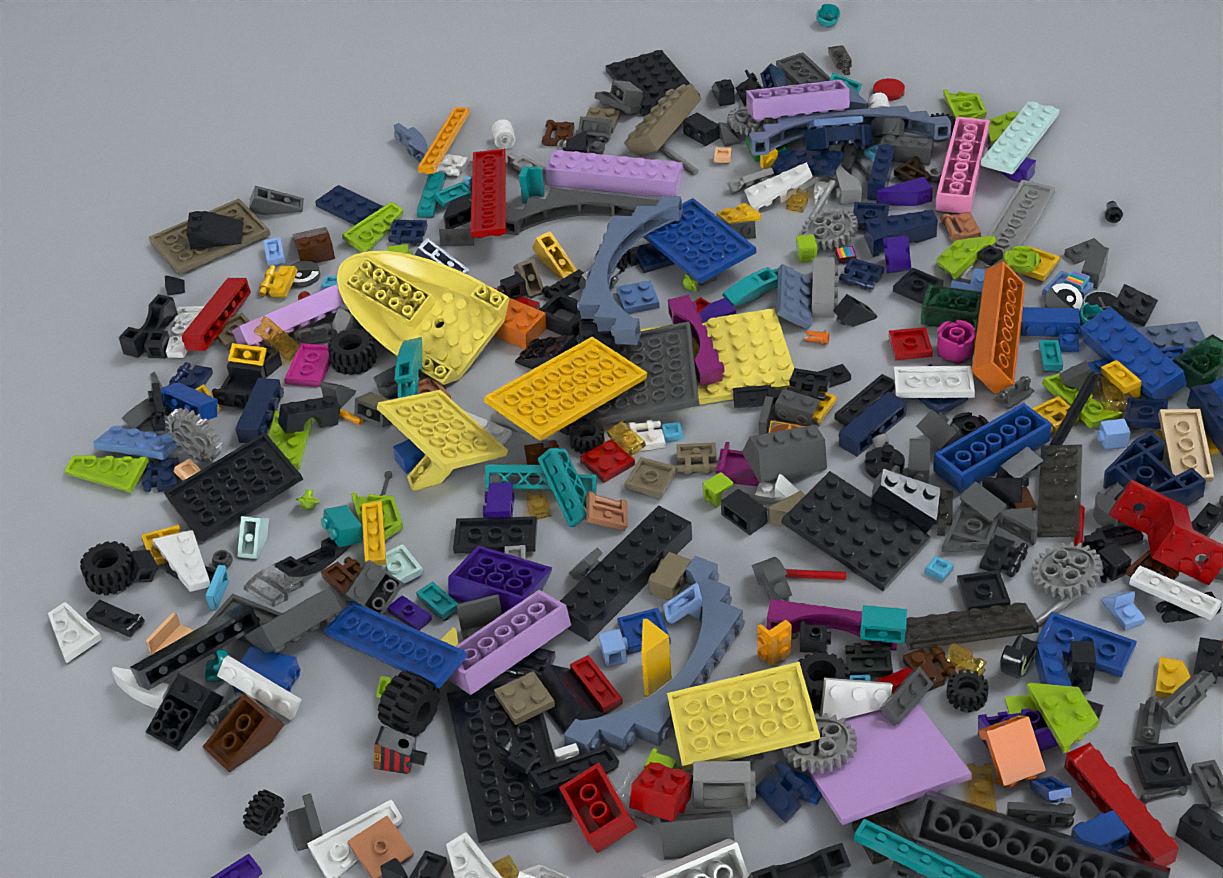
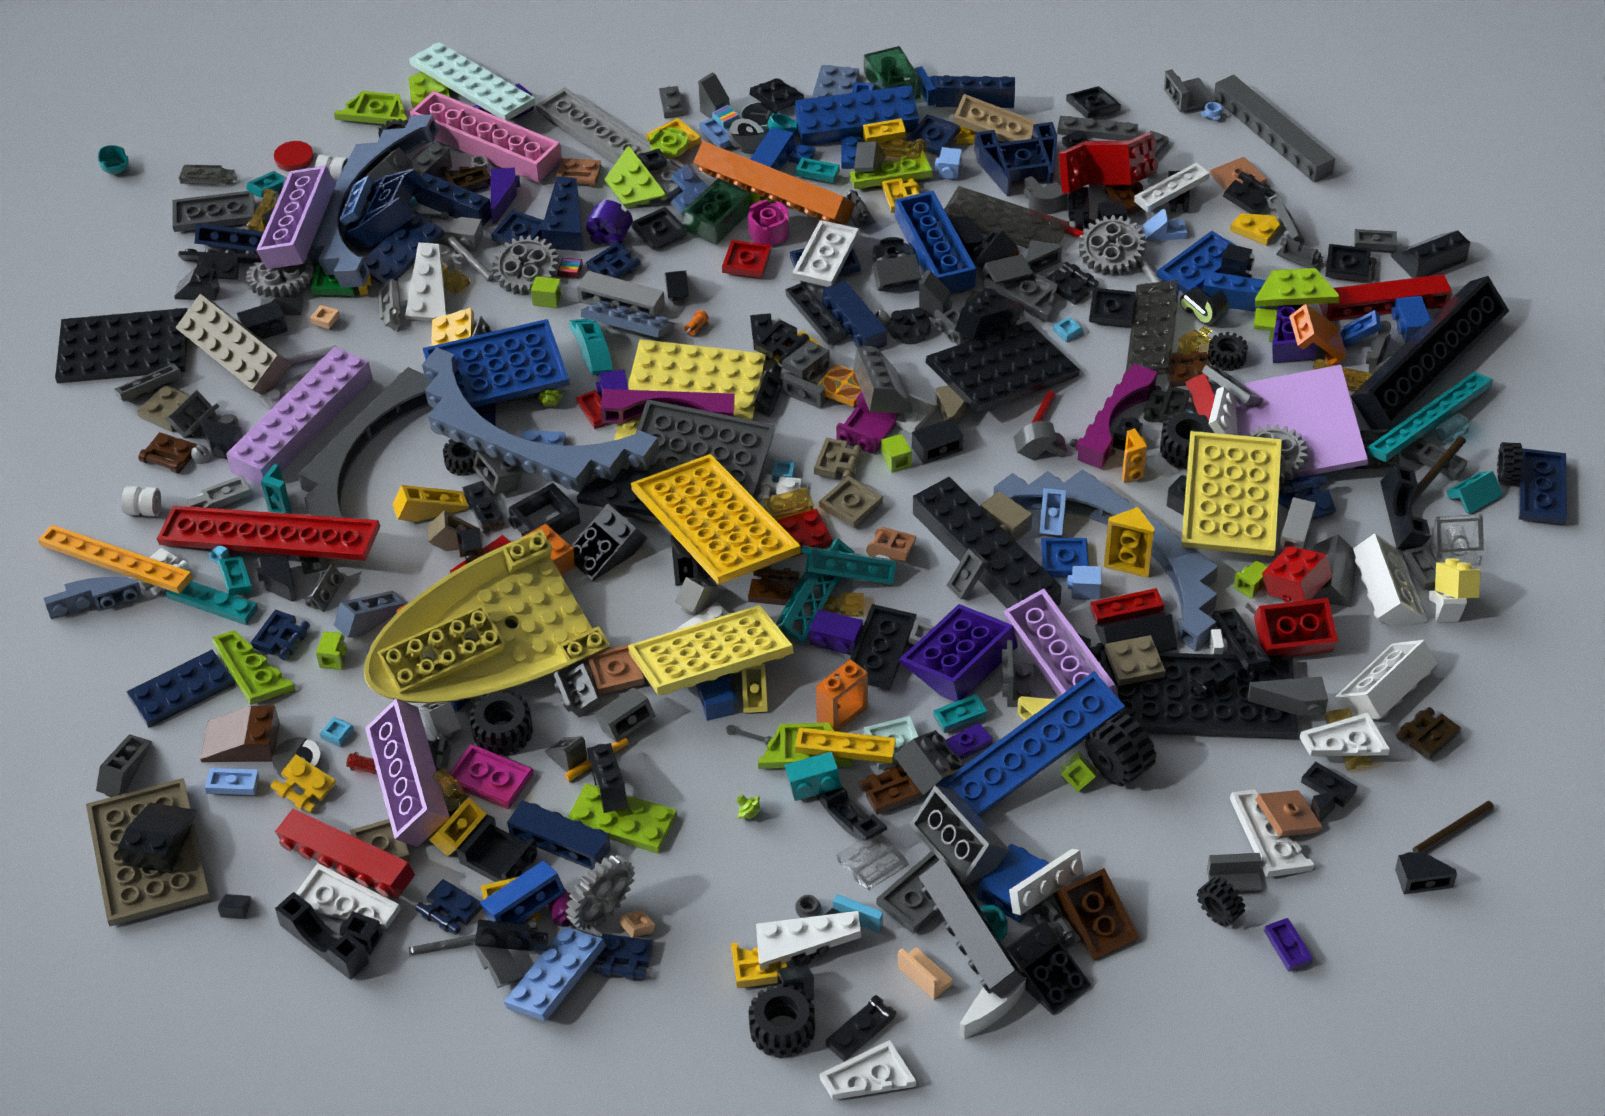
camera: 75 degrees left, 5 degrees up
(108, 471) = (598, 1006): lime wing -> none
(233, 486) = (693, 876): black plate -> none
(252, 536) = (786, 868): light aqua slope -> none
(396, 751) = (1173, 768): torso -> none
(408, 367) = (583, 660): teal slope -> none
(425, 532) = (843, 697): none -> orange window
(510, 822) = (1293, 696): none -> dark grey slope
(626, 93) = (150, 365): dark grey brick -> none
(883, 624) = (1148, 371): teal brick -> none
(1075, 409) = (909, 169): black axle -> none
(1113, 212) = (627, 63): black cone -> none

